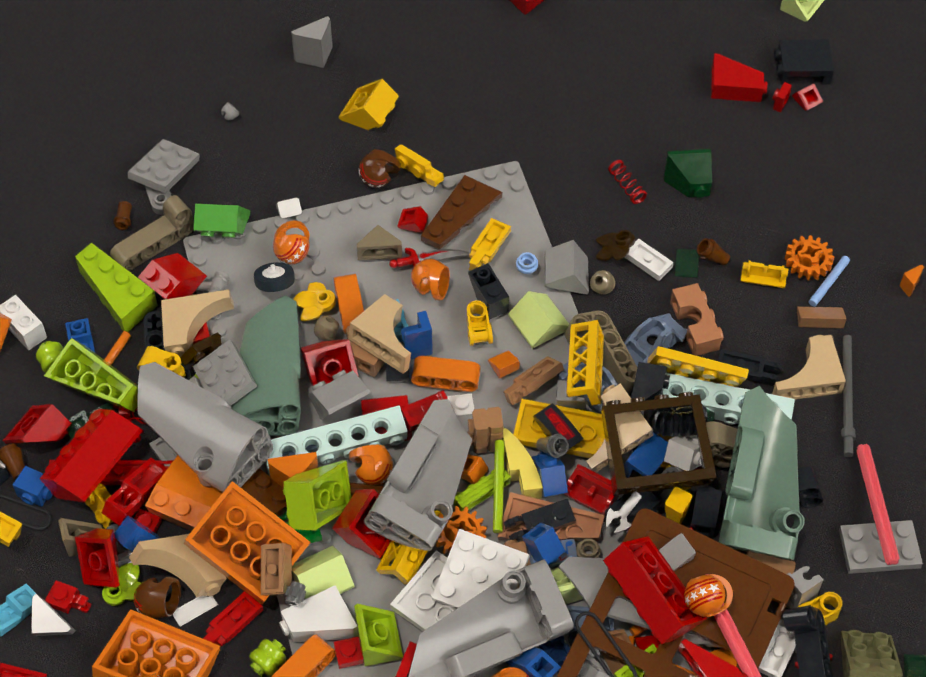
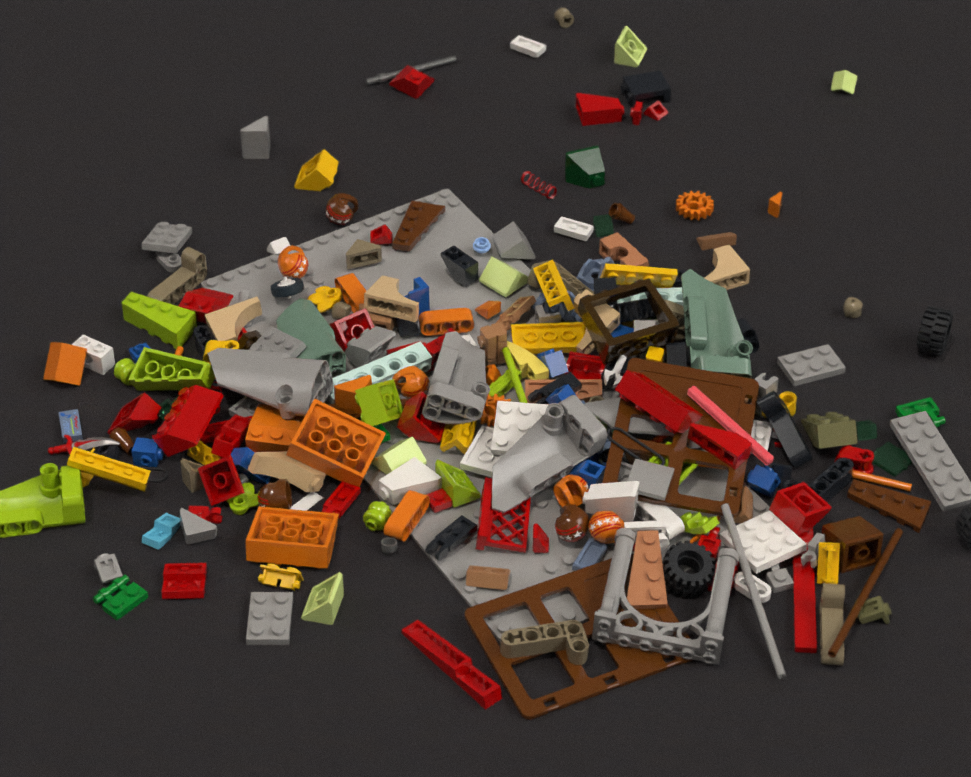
camera: 15 degrees left, 15 degrees down
(122, 219) = (146, 278): reddish brown pin -> none
(220, 219) = (228, 259): bright green slope -> none
(229, 112) = (205, 197): light grey hinge -> none
(276, 568) = (365, 453): medium nougat slope -> none
(295, 594) = (387, 464): dark grey bar -> none
(413, 259) = (398, 259): piece -> none
(418, 166) = (373, 201): yellow hinge -> none
(432, 276) = (411, 264): orange helmet -> none
(478, 327) = (459, 286): yellow piece -> none
(488, 243) = (447, 237): yellow hinge -> none
(553, 445) = (548, 341): dark grey cone -> none
(555, 422) = (545, 331): slope -> none
(602, 282) = (544, 247): dark tan piece -> none
(615, 245) = (546, 223): dark brown plate -> none
(678, 552) = (668, 376): light grey slope -> none
(707, 594) = (698, 393): orange helmet -> none
(764, 275) = (672, 221): yellow hinge -> none
(830, 279) = (714, 218): light blue bar -> none
(848, 433) = (762, 302): dark grey bar -> none
(878, 505) = (800, 337): coral axle -> none

